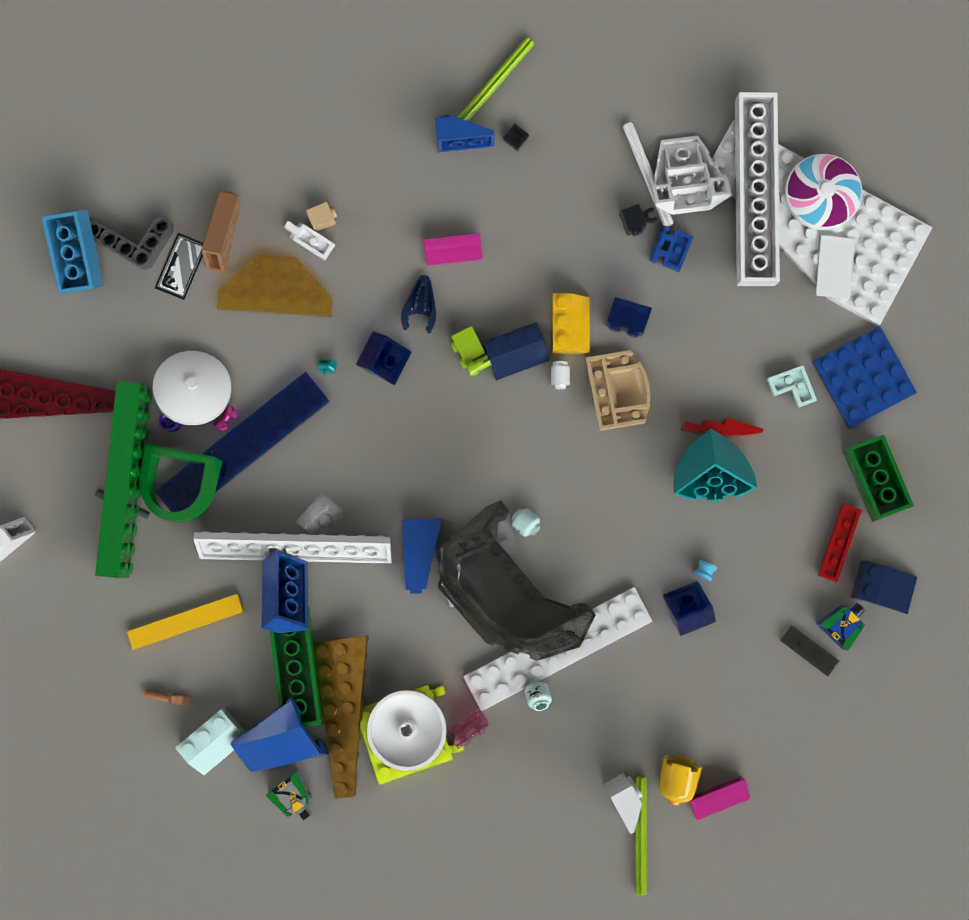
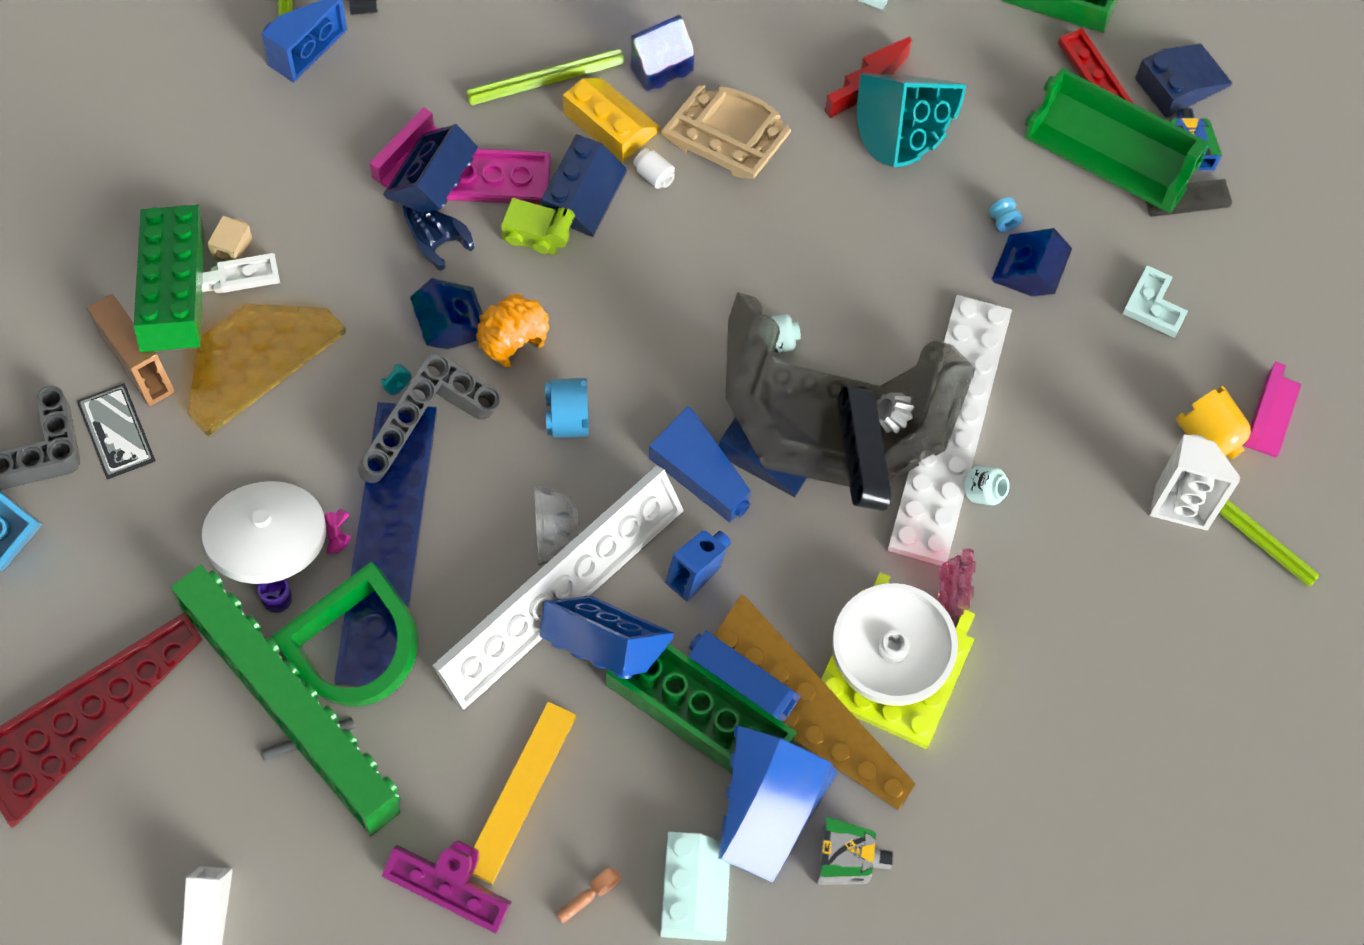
camera: 50 degrees left, 20 degrees down
(113, 633) = (449, 883): none -> magenta plate
(266, 215) = (169, 278): none -> green brick
(315, 396) = (415, 407): none -> dark grey beam
(324, 677) = (743, 675): none -> blue slope
(359, 598) = (696, 563): none -> blue torso
(385, 463) = (568, 407): none -> dark azure brick
(400, 396) = (510, 326): none -> light orange hair
(448, 272) = (432, 169): none -> dark blue slope
(481, 300) = (504, 175): none -> dark pink tile
(494, 624) = (863, 448): none -> black beam
(532, 618) = (894, 411): none -> light grey piece
(562, 269) = (545, 76): none -> lime axle
(722, 684) = (1149, 307): none -> light aqua plate
(801, 589) = (1115, 139): none -> green panel

